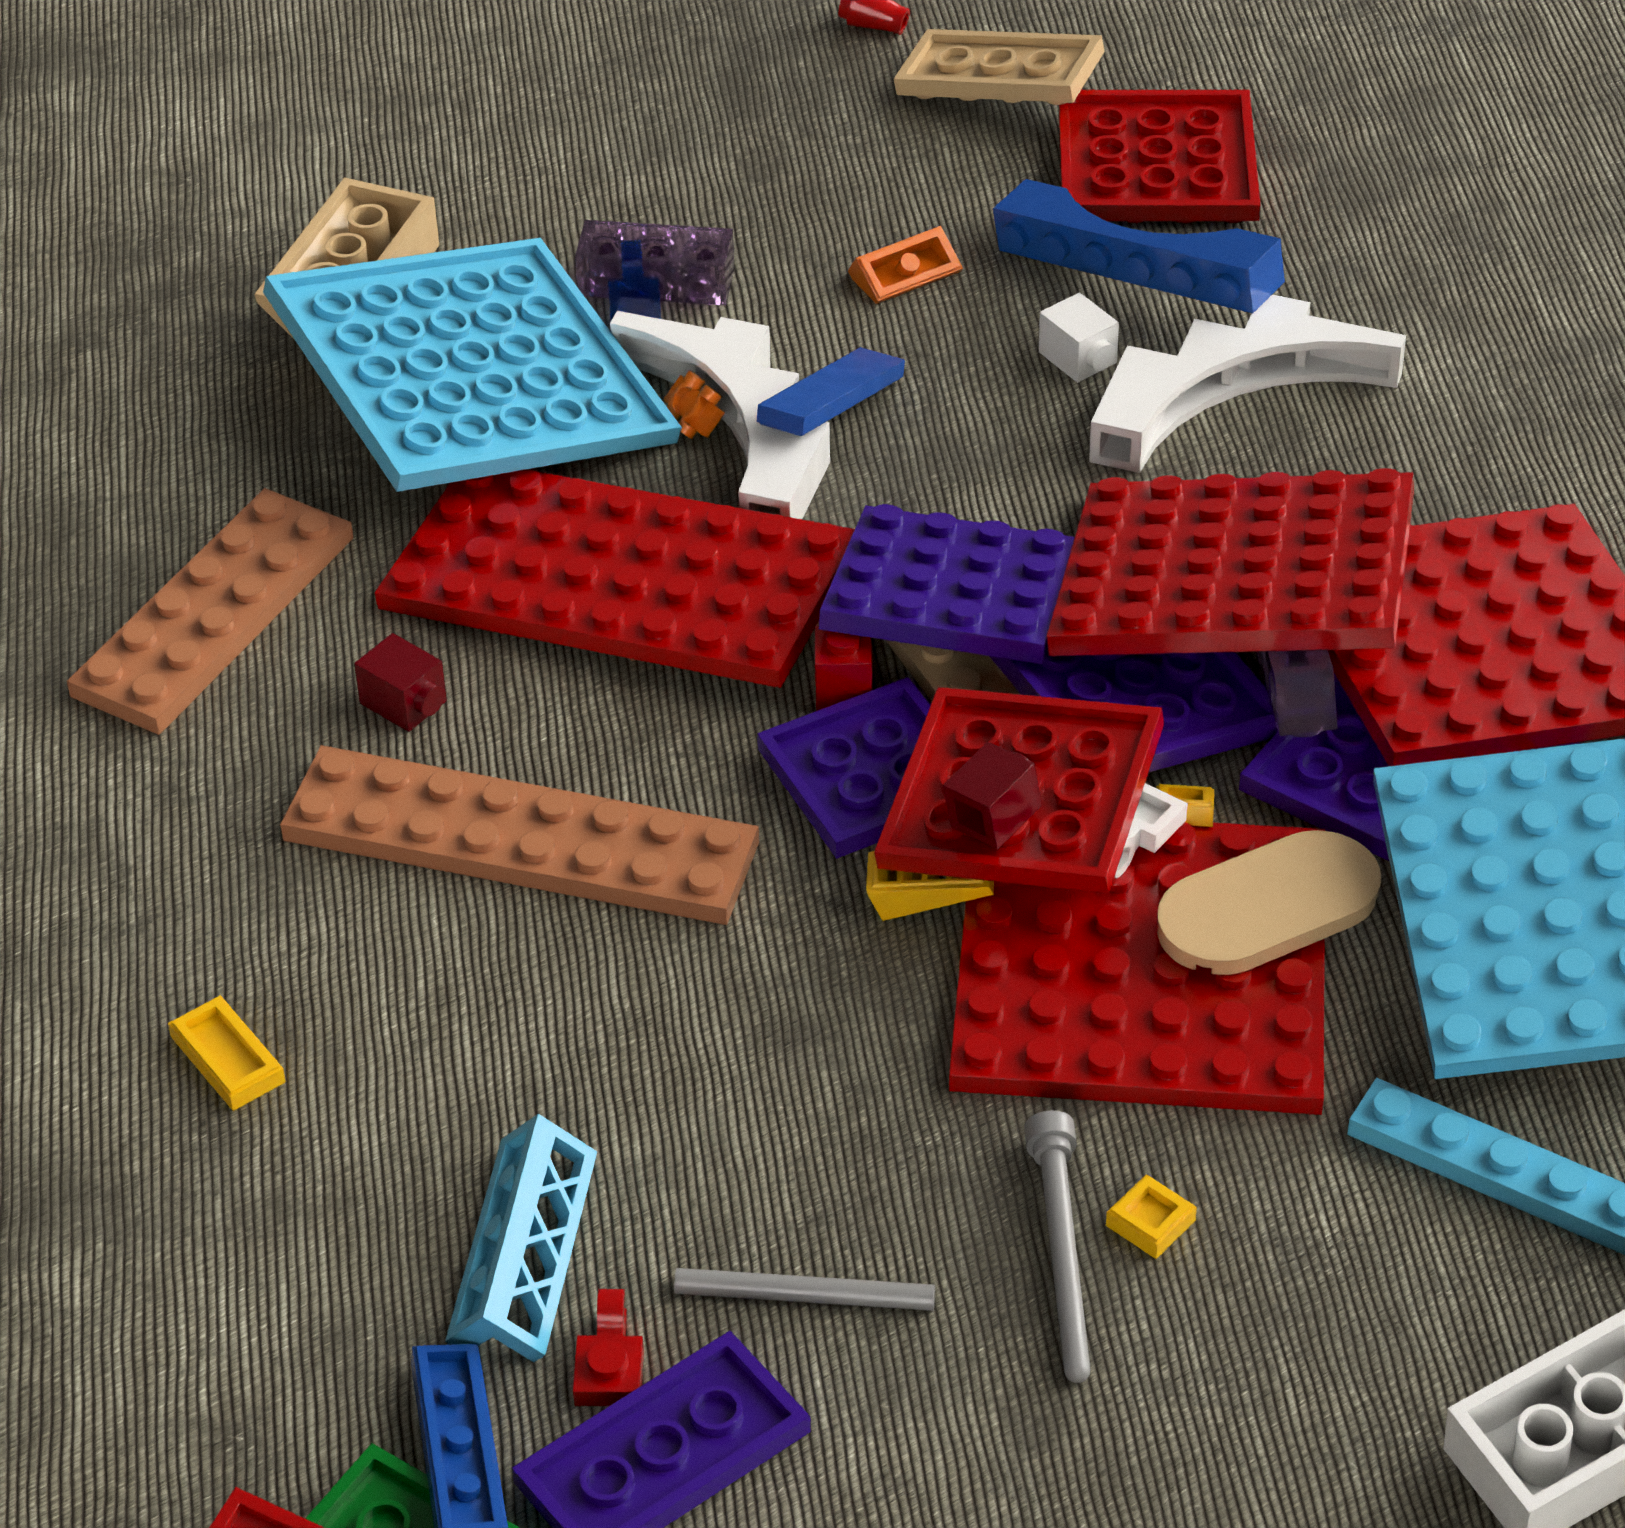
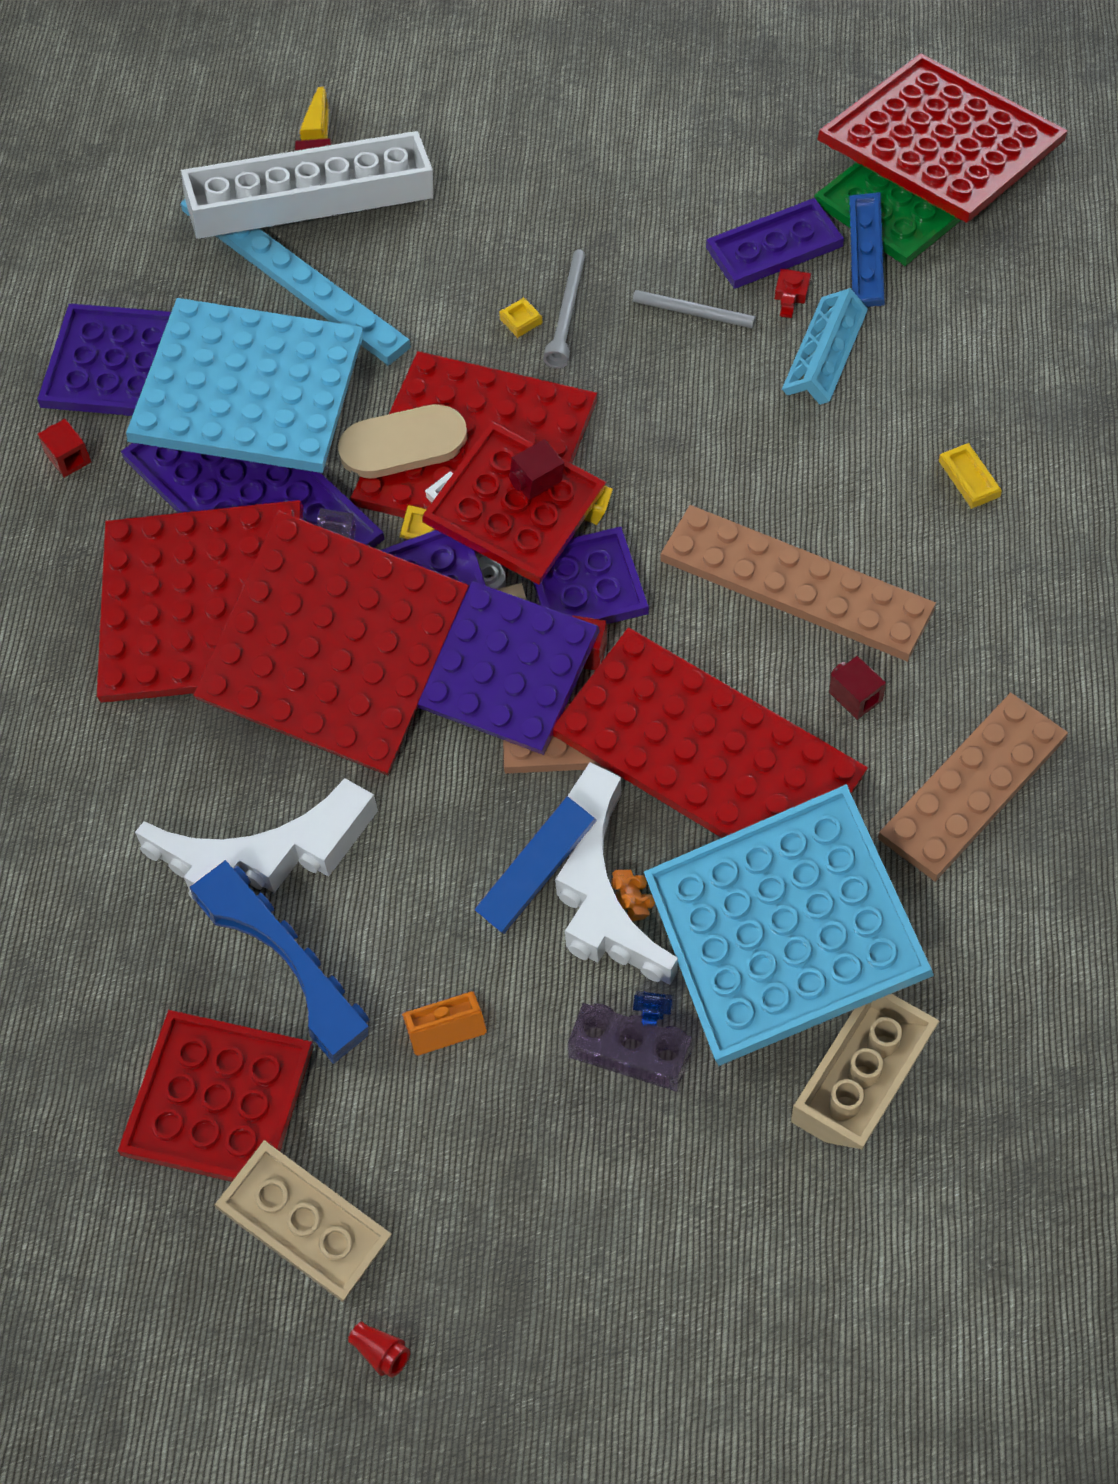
camera: 165 degrees left, 15 degrees up
(1078, 337) = (348, 902): white brick -> none

